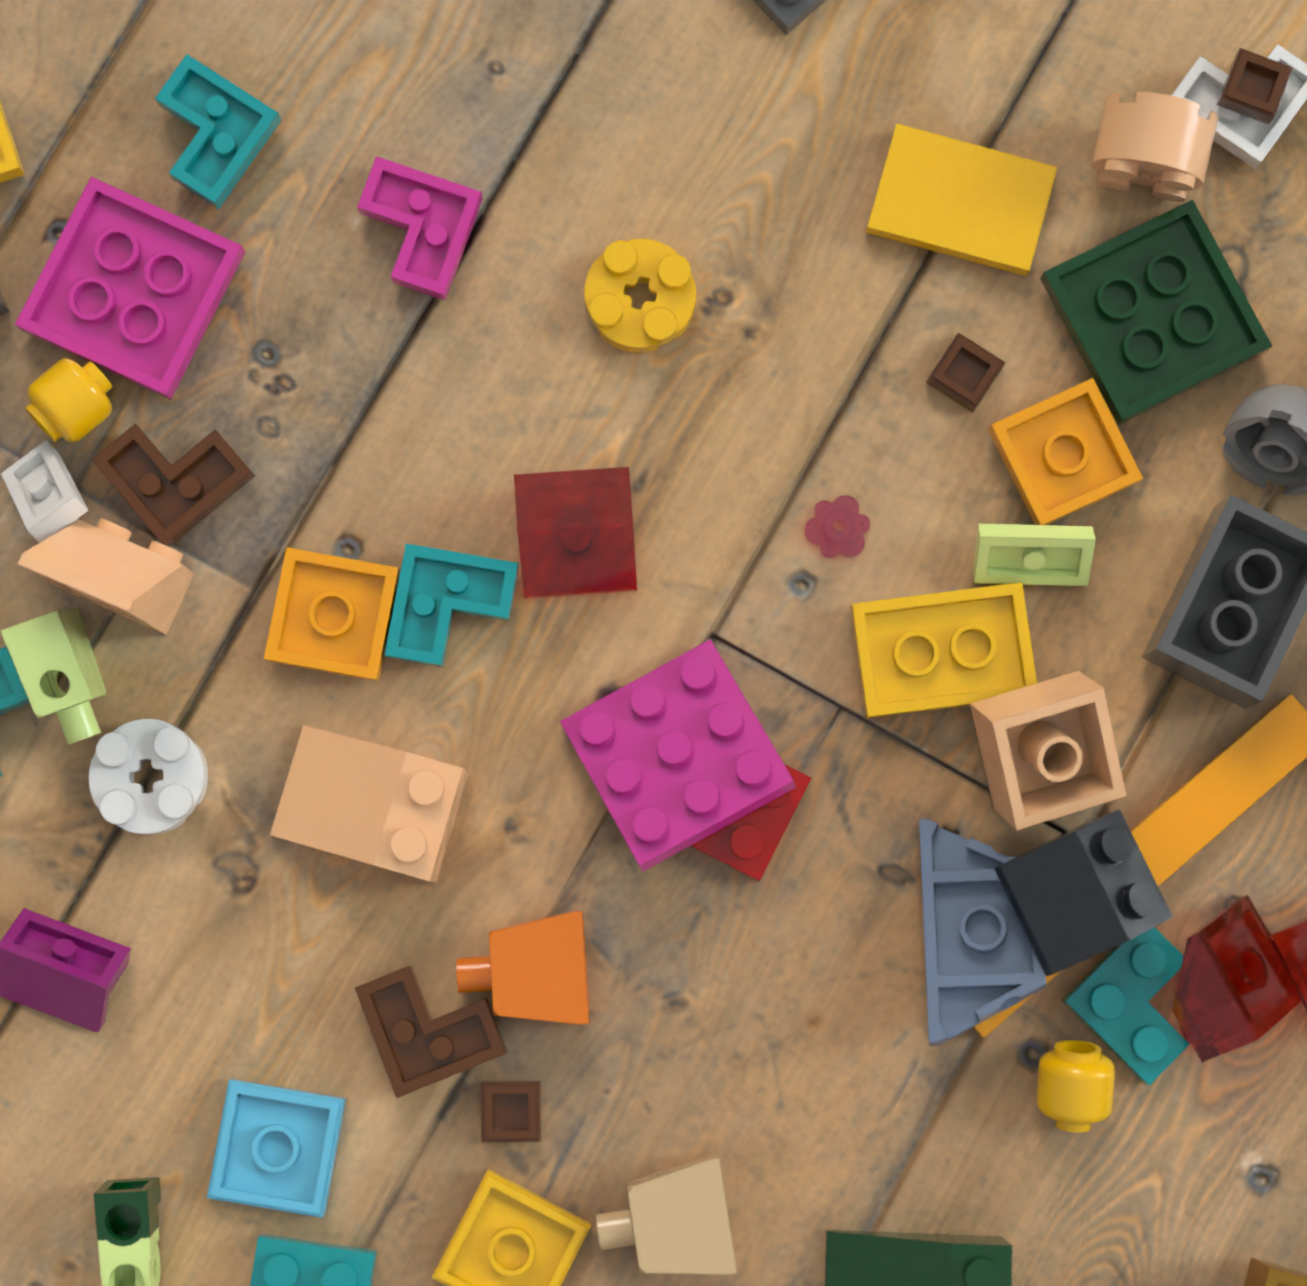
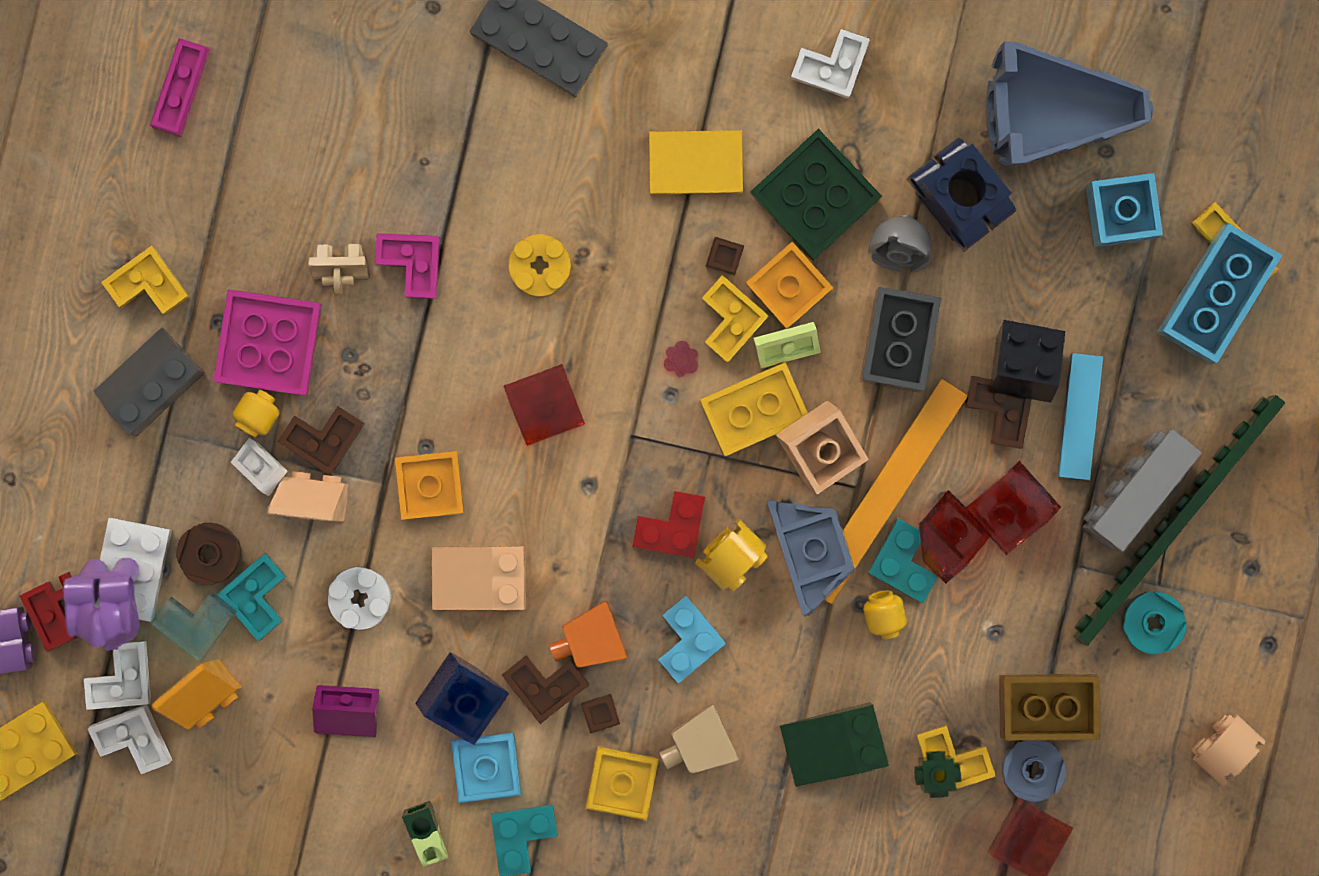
camera: 15 degrees left, 5 degrees up
(52, 646) = (290, 546): yellowish green torso -> none
(229, 129) = (293, 242): teal plate -> none
(269, 1010) = (461, 698): none -> clear blue slope
(291, 197) = (338, 270): none -> tan hips
(436, 585) = (478, 455): teal plate -> none
(677, 755) = (631, 505): dark pink plate -> none
(724, 1031) = (697, 642): none -> medium azure plate
(831, 897) = (732, 556): none -> yellow brick
(963, 482) = (740, 318): none -> yellow plate
(1083, 892) = (859, 516): black slope -> none
(1153, 144) = (789, 106): light nougat brick -> none
(1254, 86) = (834, 57): reddish brown tile -> none

